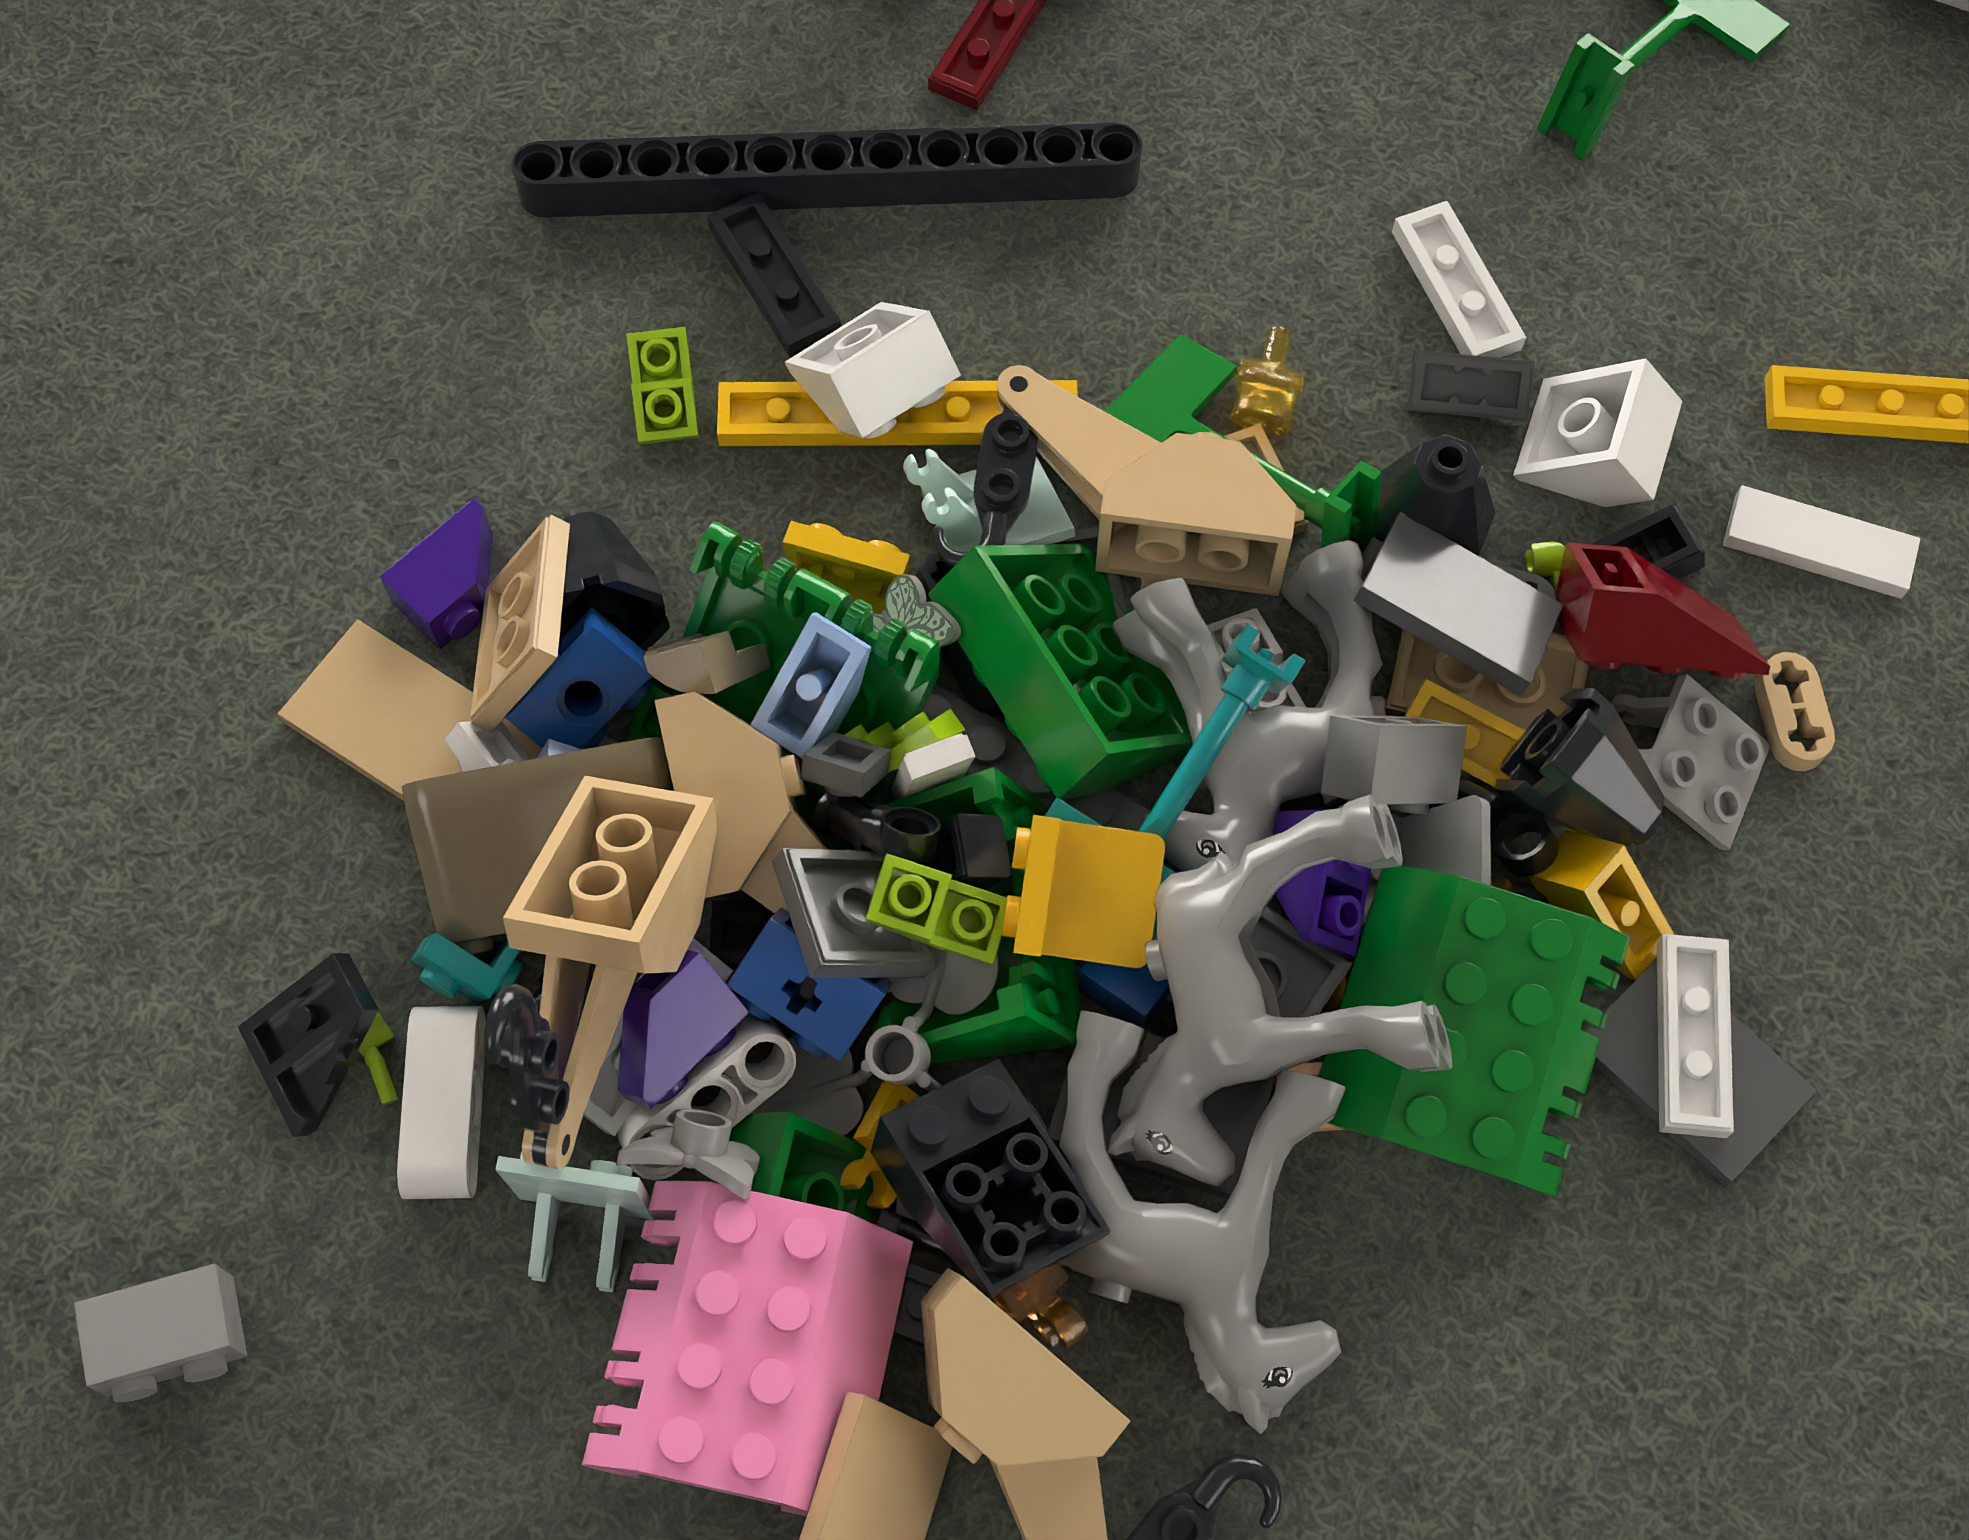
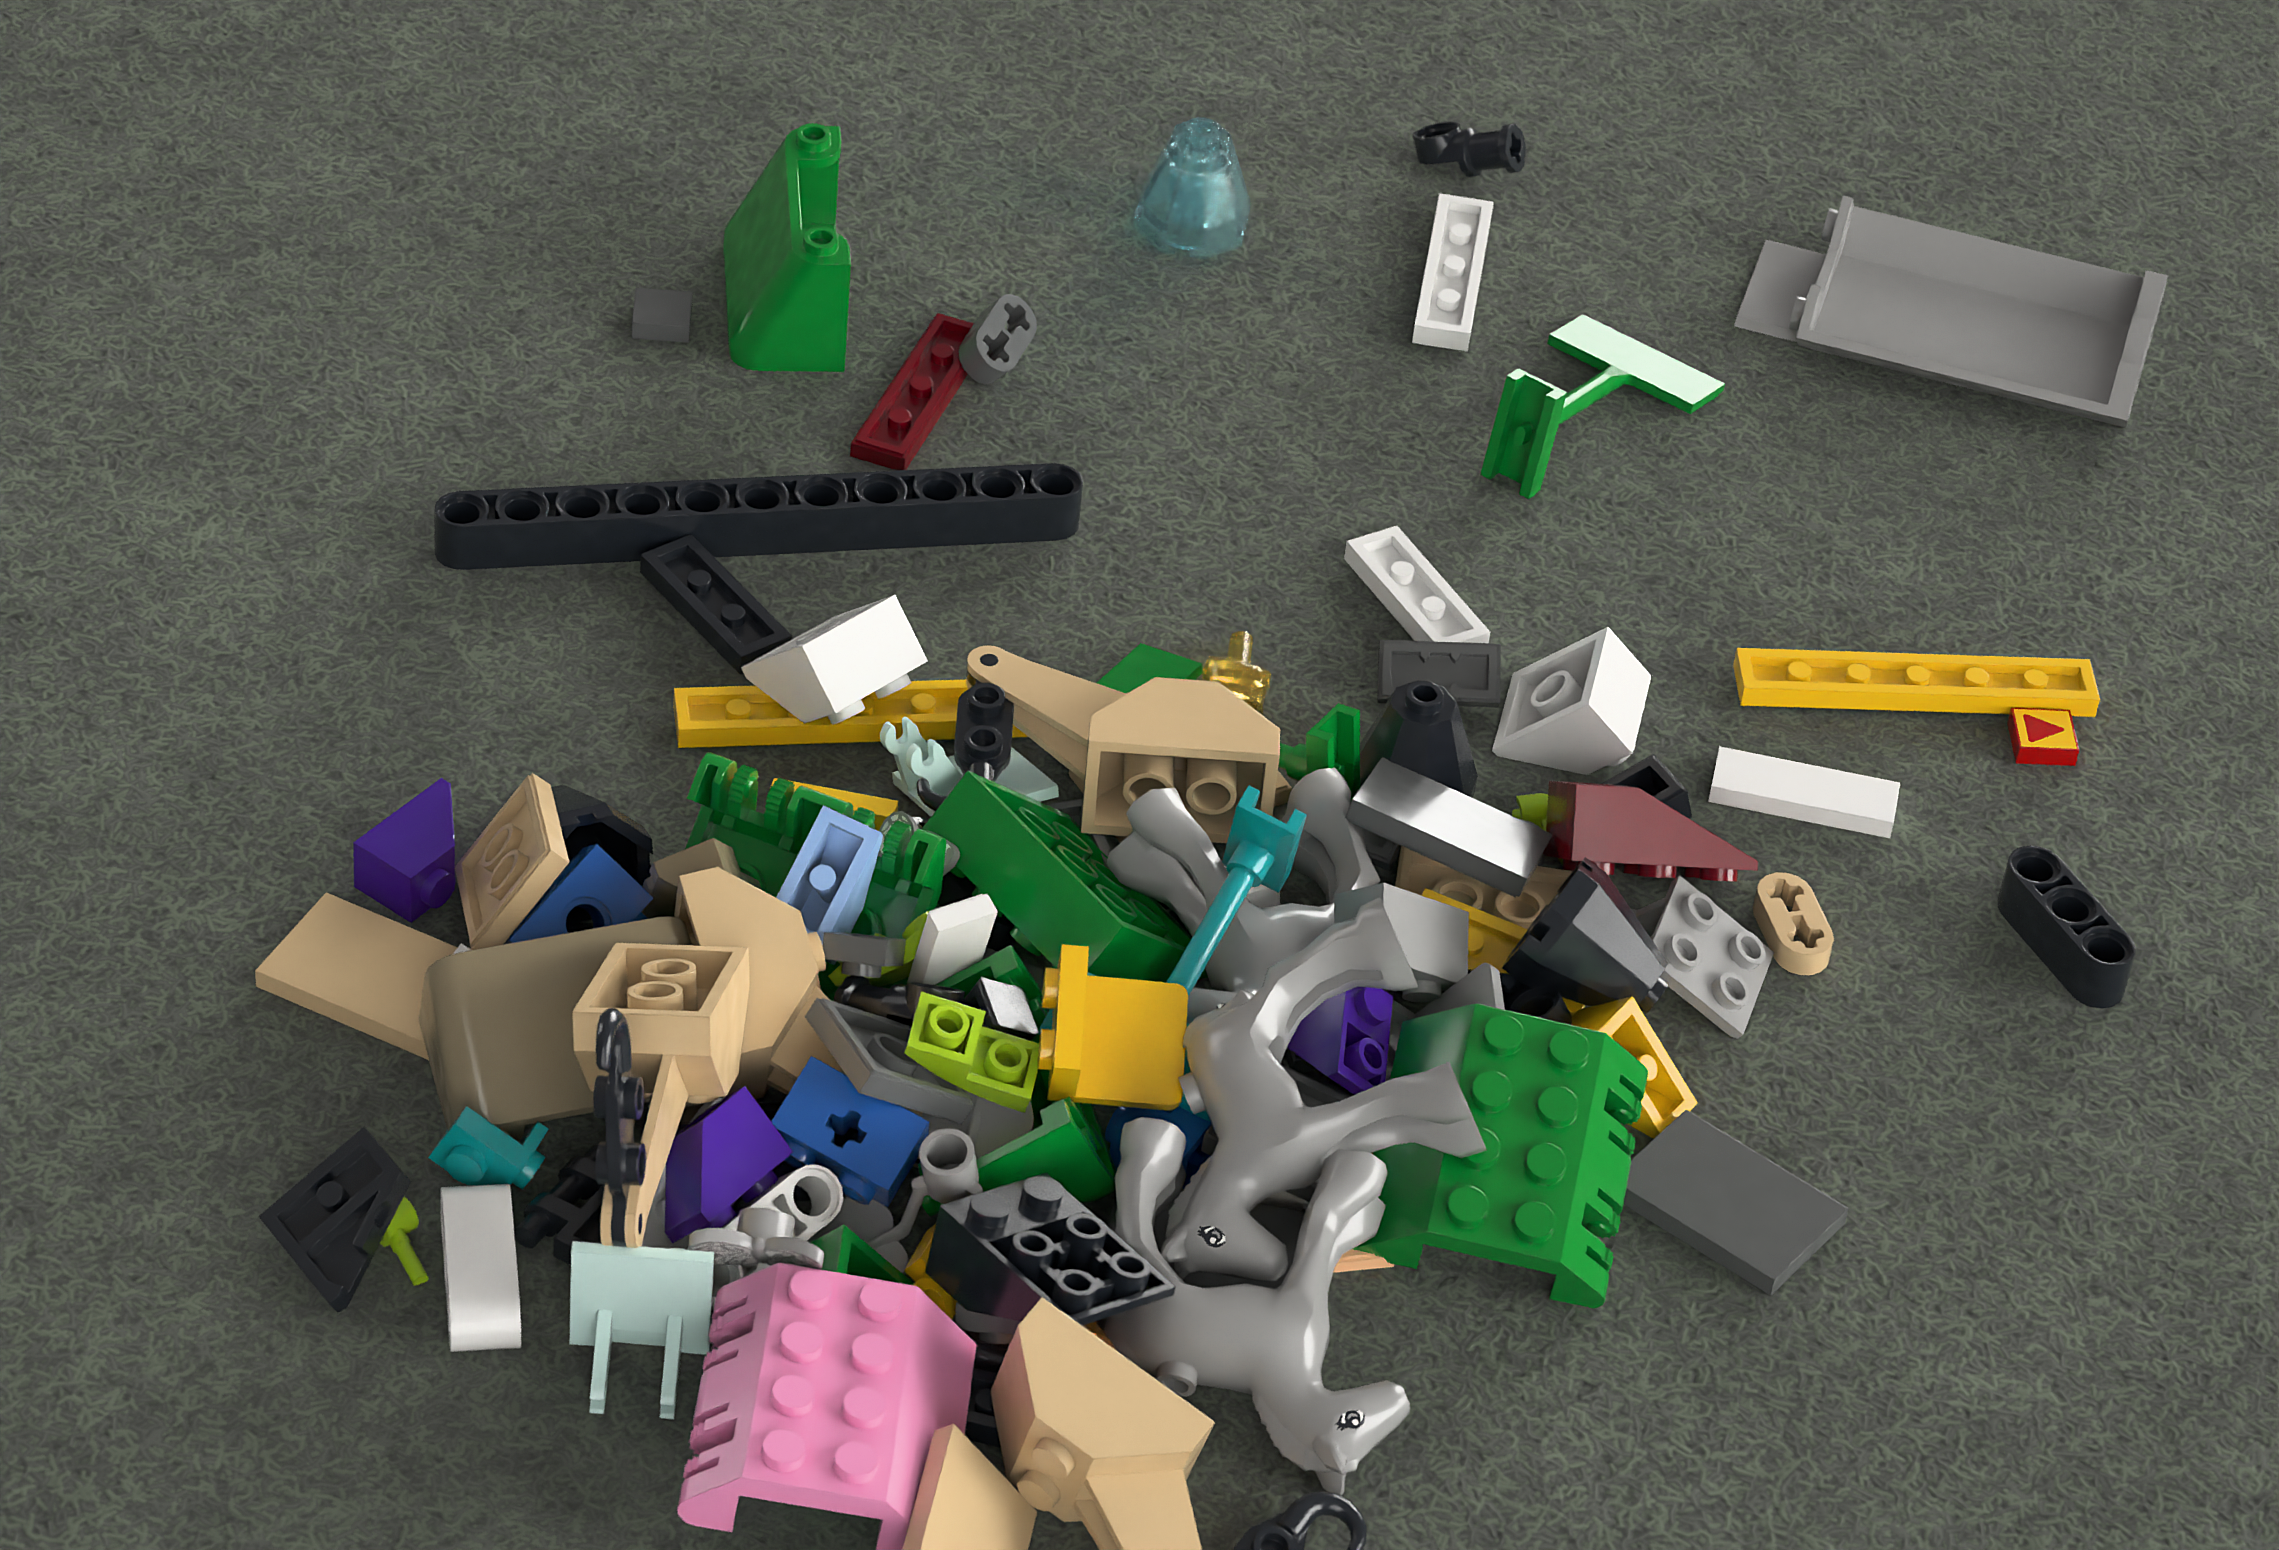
camera: 10 degrees left, 25 degrees down
(160, 1332) = (222, 1452): light grey brick -> none
(662, 385) = (612, 698): lime slope -> none
(1694, 1036) = (1723, 1166): white tile -> none

